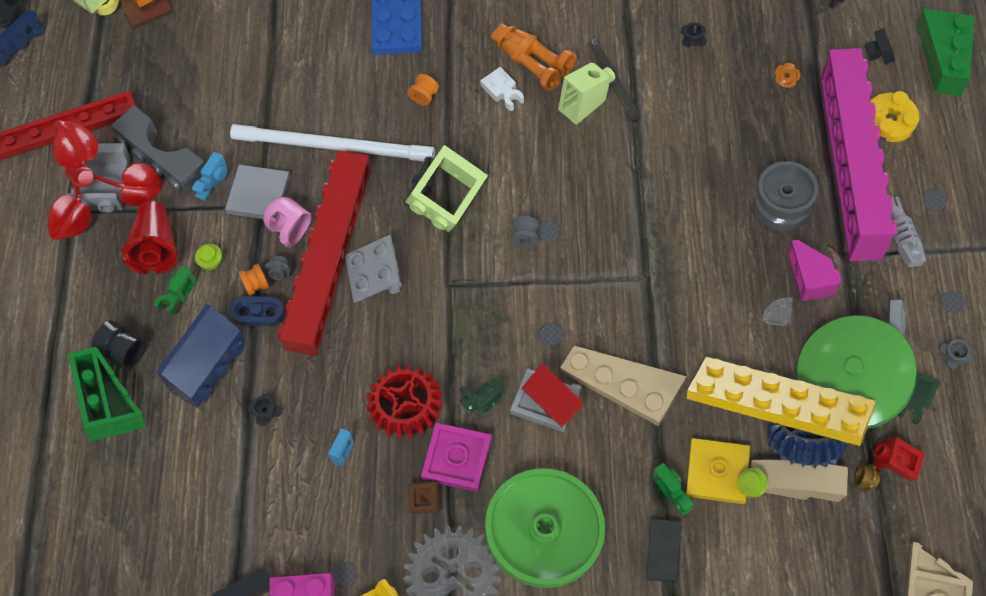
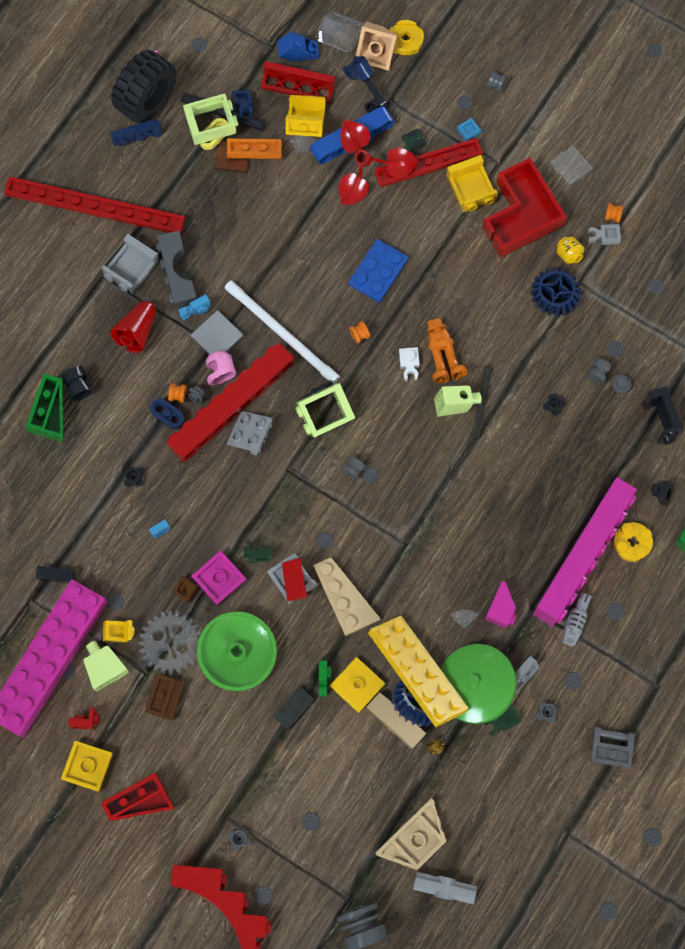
camera: 30 degrees right, 10 degrees up
(71, 149) = (119, 249): red plant -> none
(179, 289) = (132, 369): green plate -> none
(201, 356) = (117, 423): dark blue slope -> none
(208, 256) = (162, 359): lime plate -> none
(387, 390) = (217, 521): red gear -> none
(752, 482) = (368, 705): lime plate -> none
(785, 81) = (585, 473): orange plate -> none
(785, 196) = (532, 547): dark grey wheel -> none
(898, 457) = (462, 748): red bracket -> none

